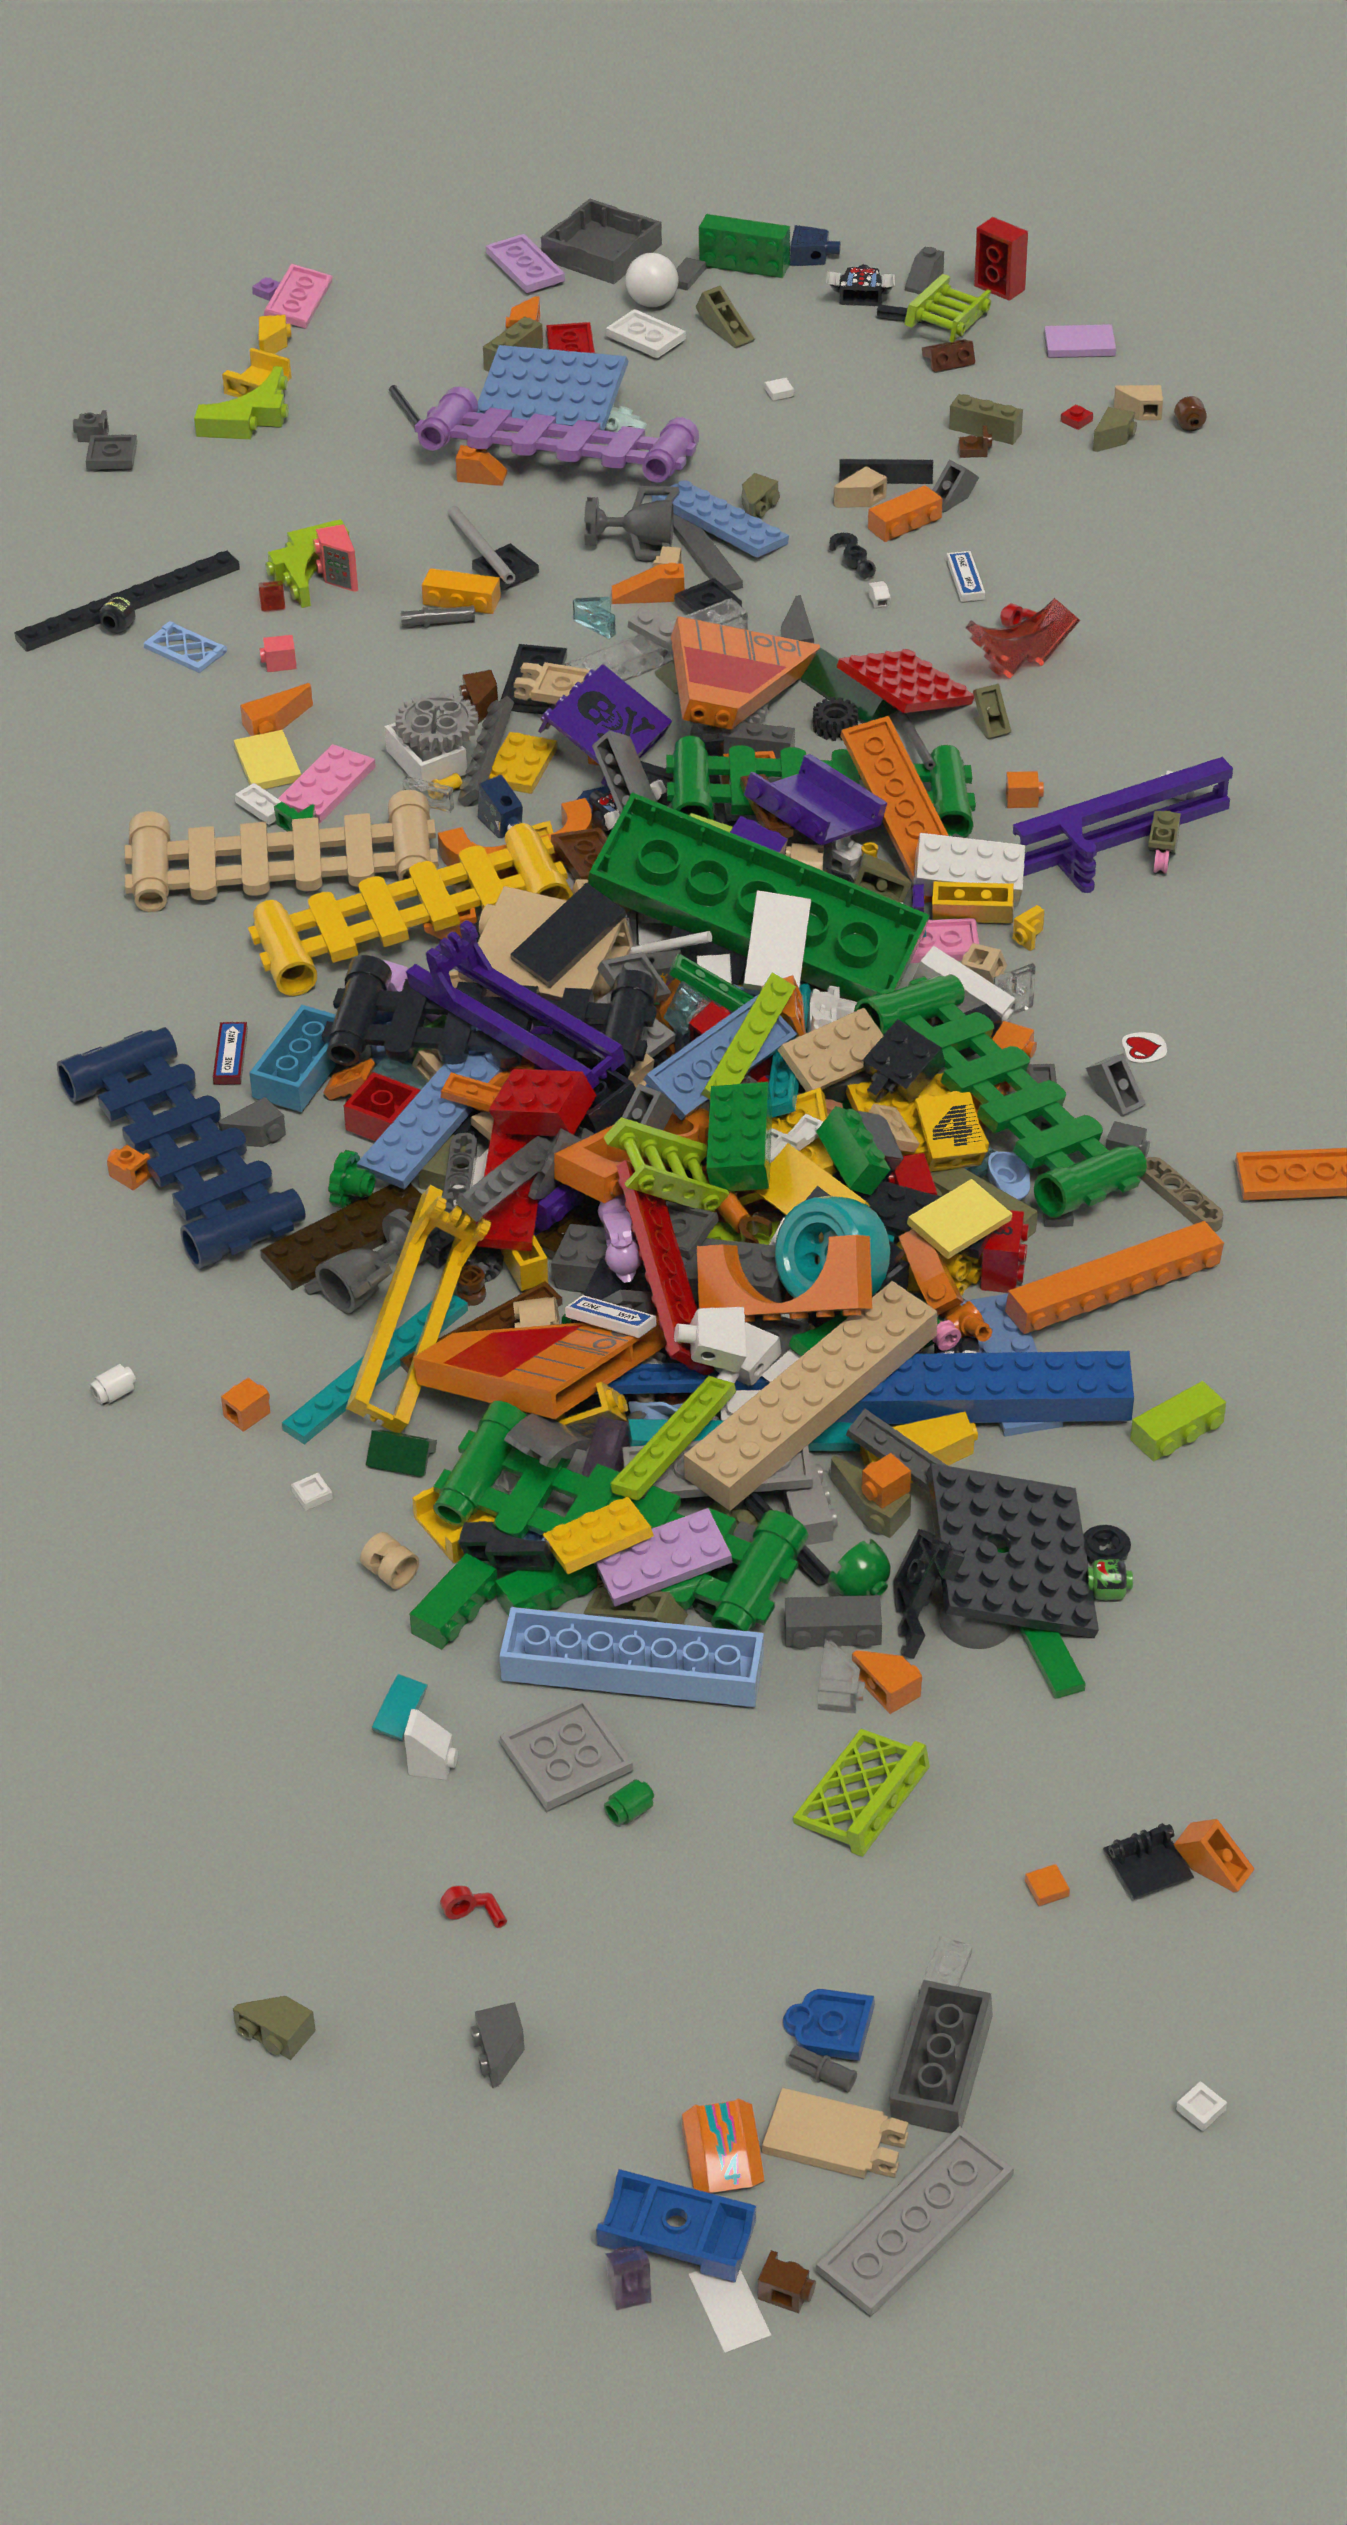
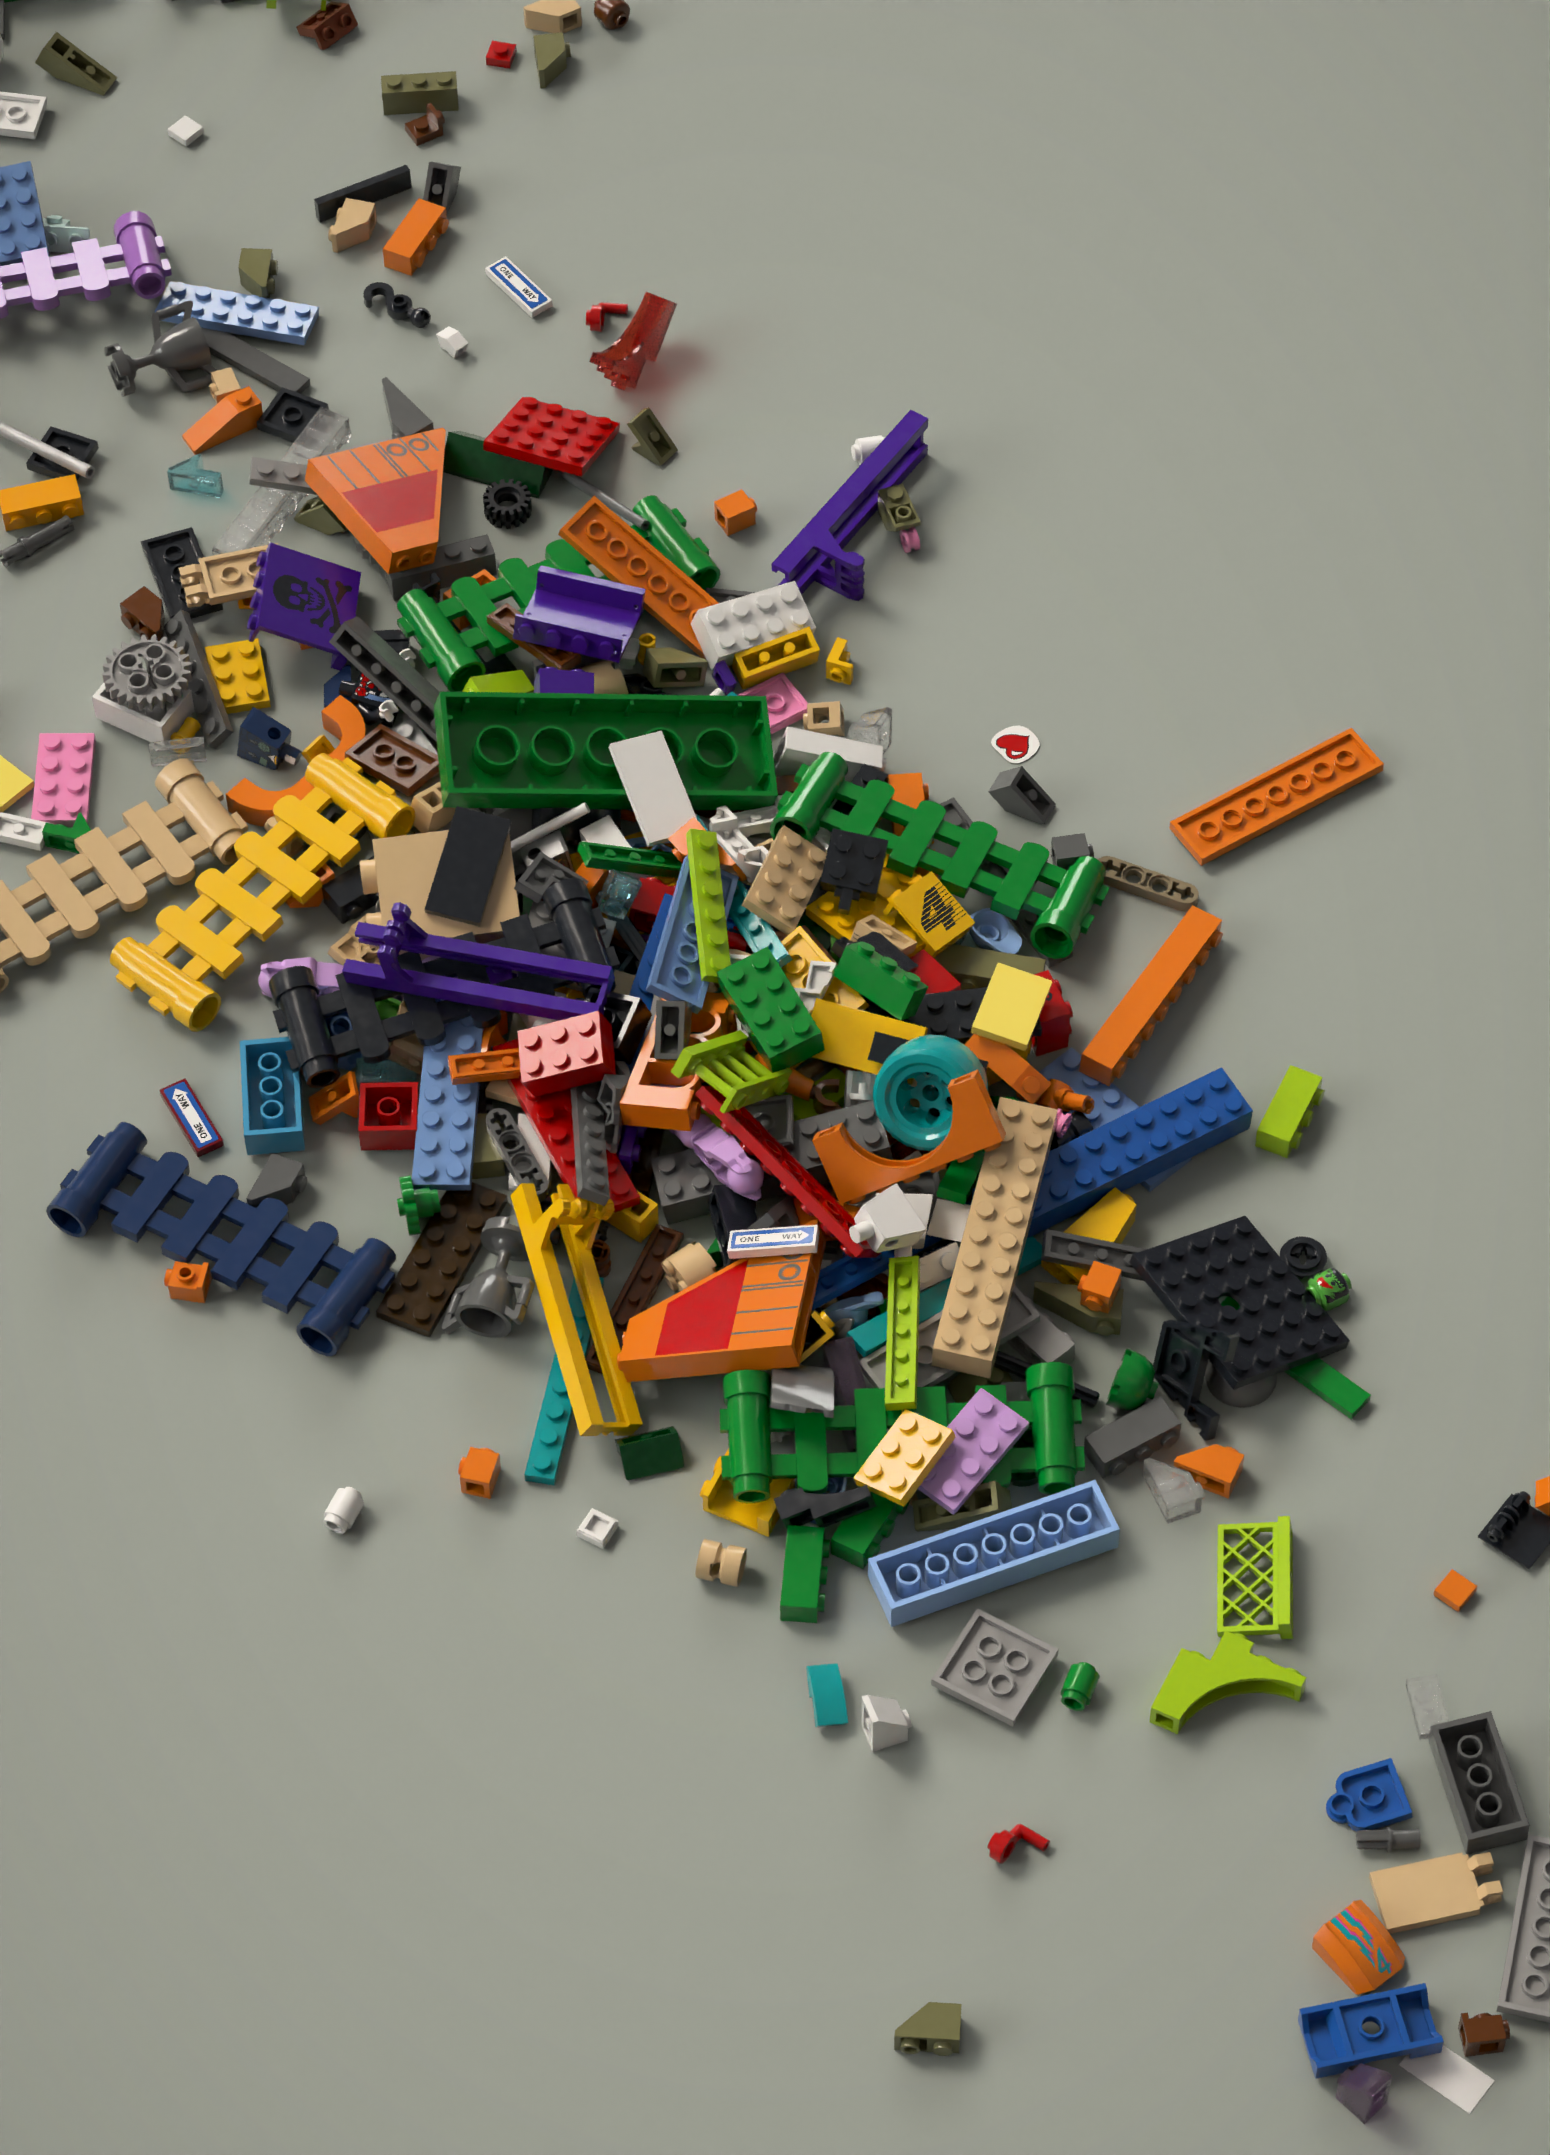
camera: 30 degrees left, 10 degrees up
(500, 2038) = (1121, 1947): dark grey slope -> none
(743, 1850) = (1230, 1672): none -> lime arch

